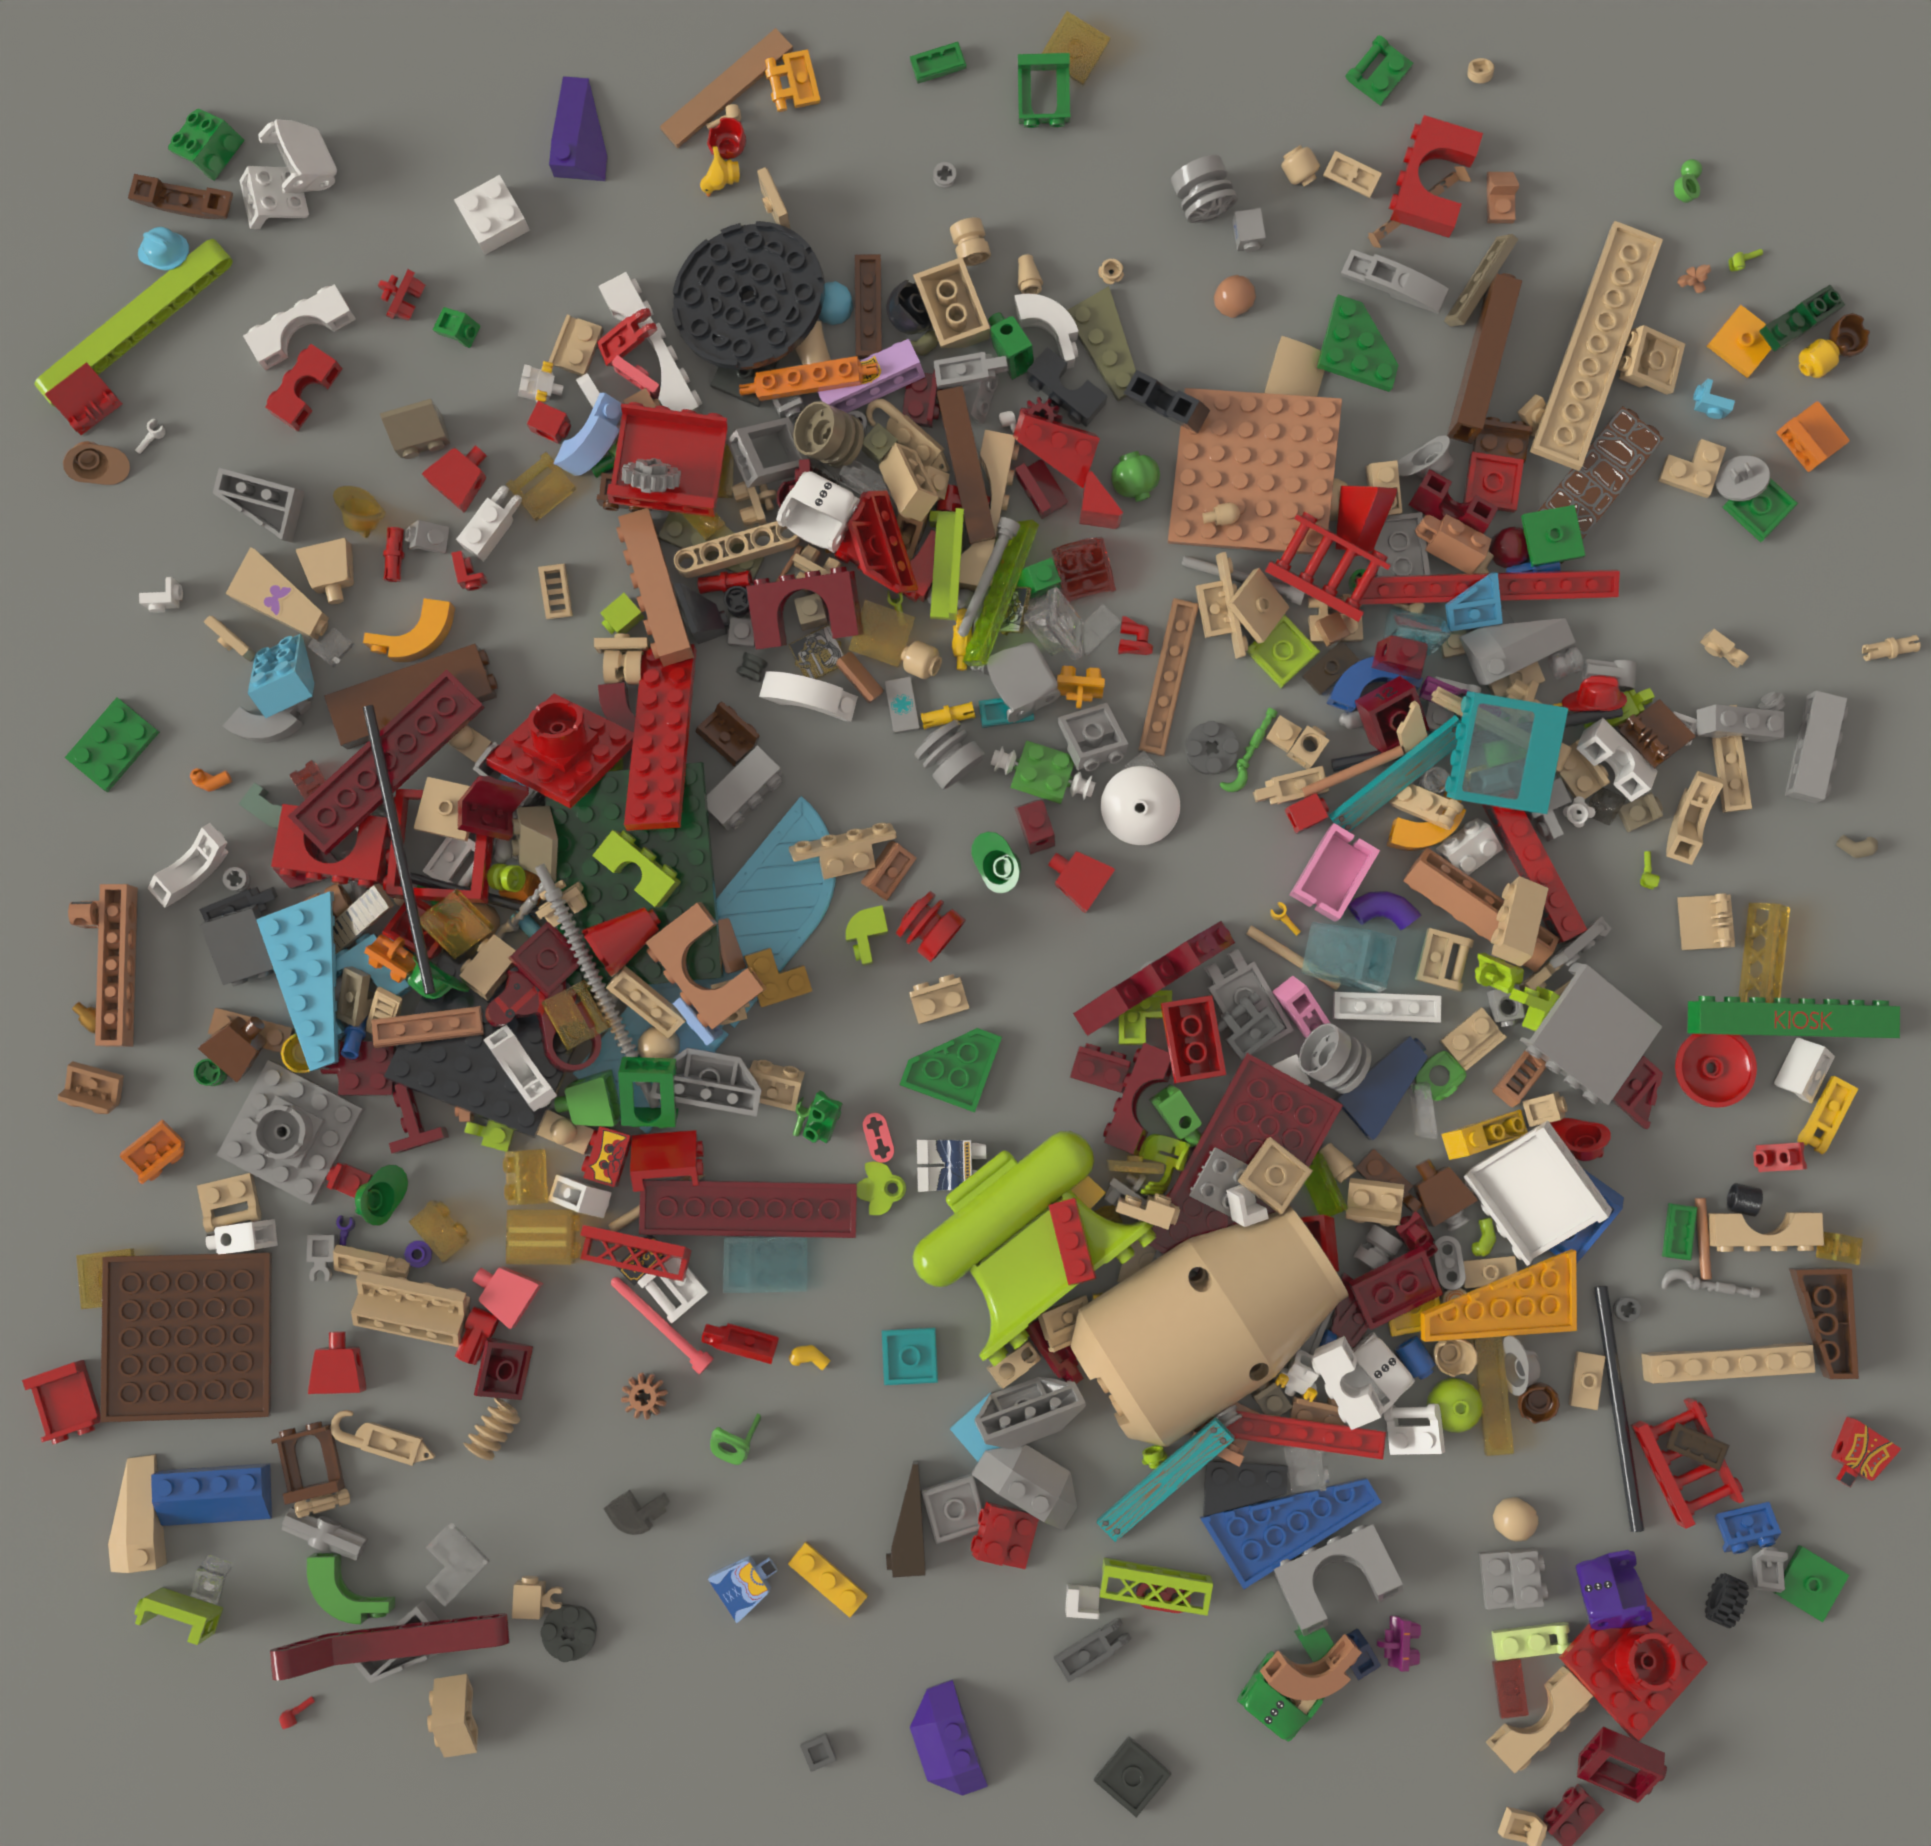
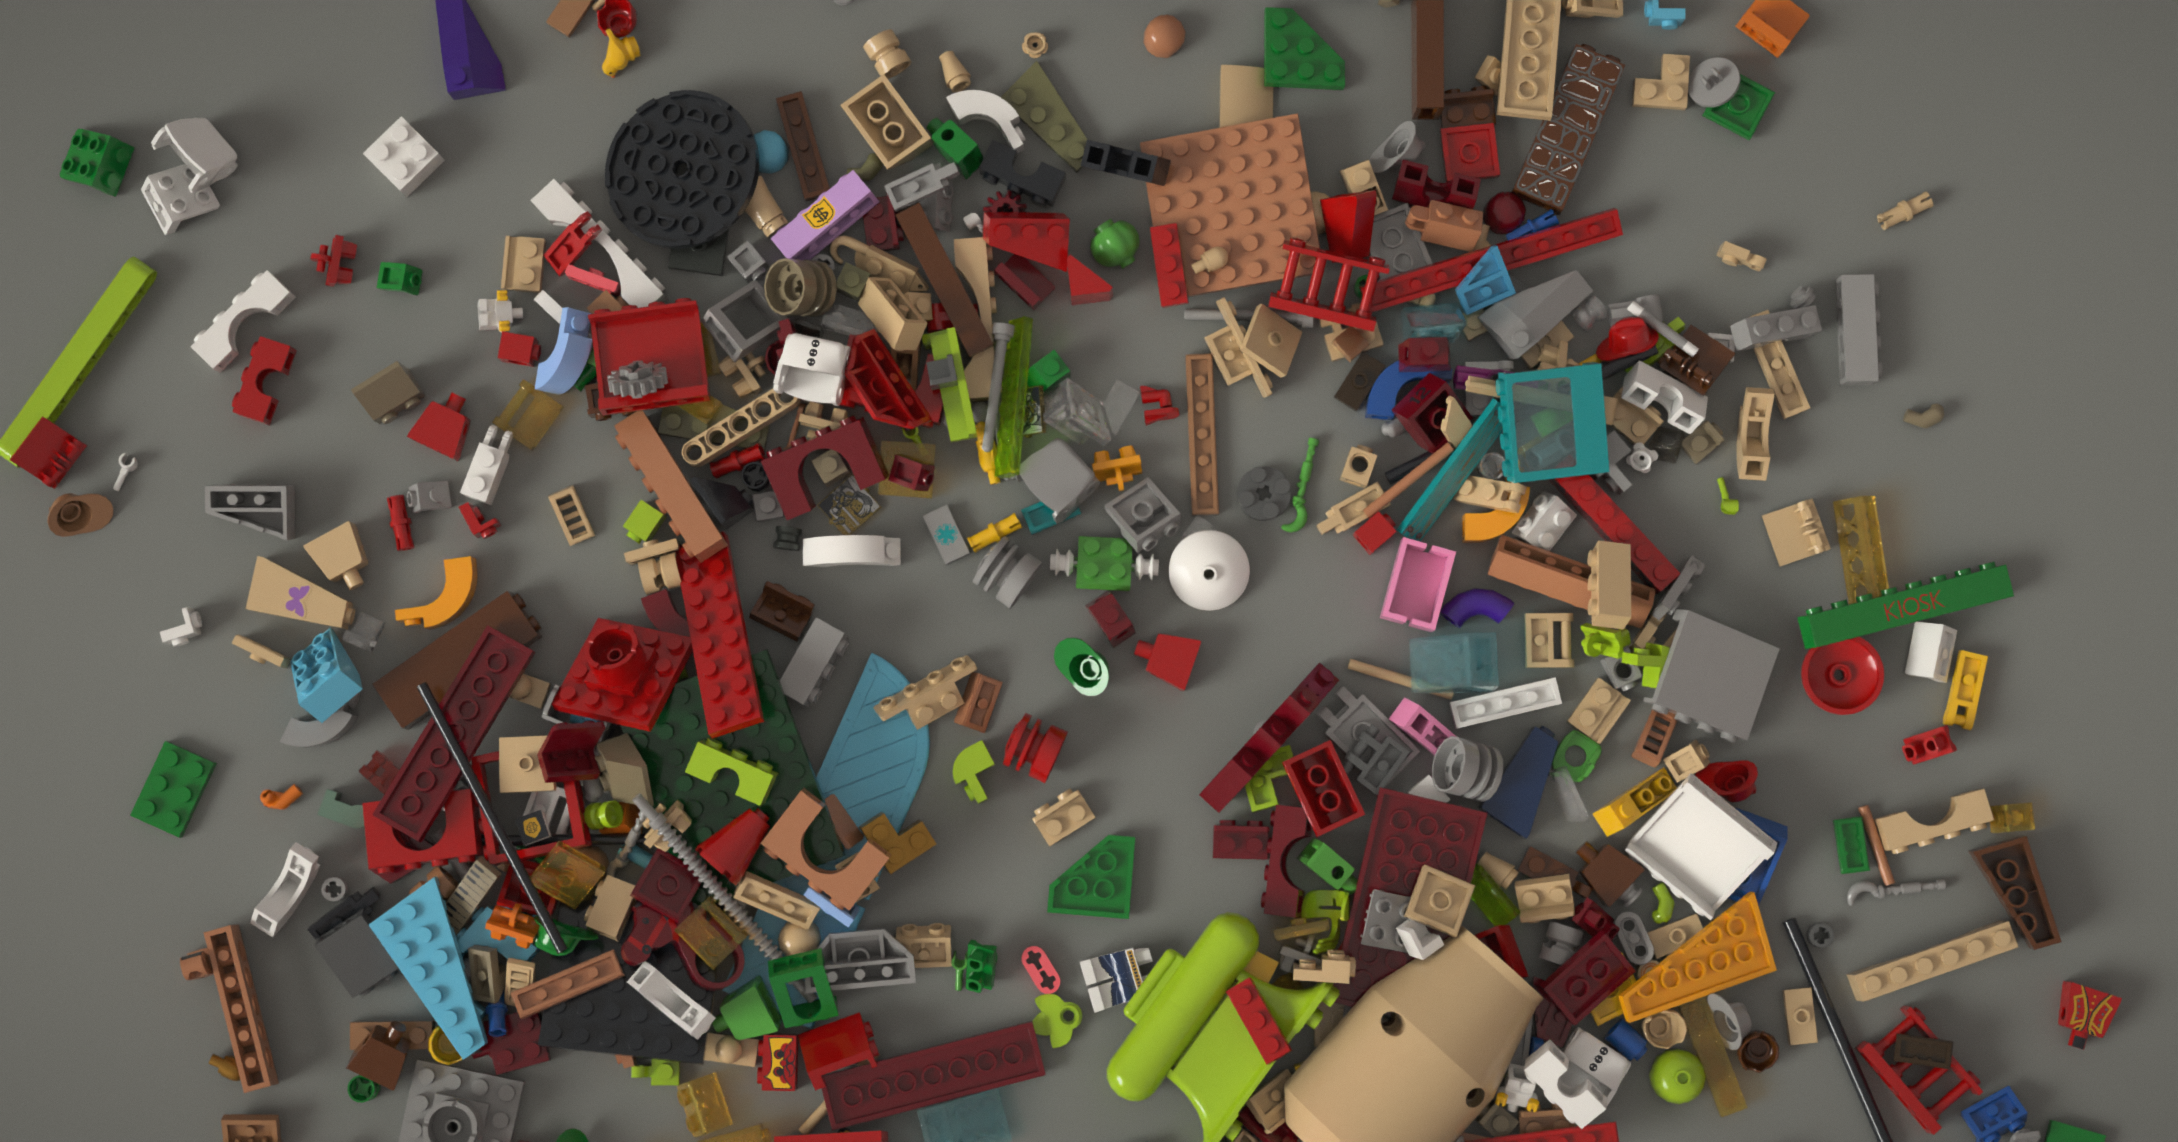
camera: 10 degrees left, 0 degrees up
(163, 249) = (85, 281): medium azure piece -> none
(179, 199) = (88, 224): reddish brown slope -> none
(358, 509) = (354, 487): clear yellow piece -> none
(412, 1123) = (577, 1082): dark red bracket -> none
(435, 870) = (533, 827): none -> black tile
(580, 1196) = (763, 1109): white slope -> none
(772, 199) = (679, 67): tan plate -> none
(808, 378) = (765, 236): orange plate -> none
(859, 677) = (897, 518): nougat slope -> none
(885, 637) = (911, 473): none -> dark red bracket
(907, 309) = (843, 140): black cylinder -> none
(921, 660) = (953, 485): tan head -> none
(940, 550) = (942, 373): none -> dark grey panel
(1083, 568) = (1088, 349): clear red slope -> none
(1181, 509) = (1169, 265): none -> red plate
(1283, 652) = (1308, 378): lime tile -> none
(1283, 733) = (1330, 459): tan plate -> none
(1285, 919) = (1382, 643): yellow hand -> none
(1415, 1438) = (1647, 1119): white plate -> none
(1553, 535) = (1542, 192): green plate -> none
(1633, 695) = (1663, 329): none -> light grey bar
(1639, 1092) = (1775, 718): dark red wing -> none
(1744, 1199) = (1906, 796): black piece -> none

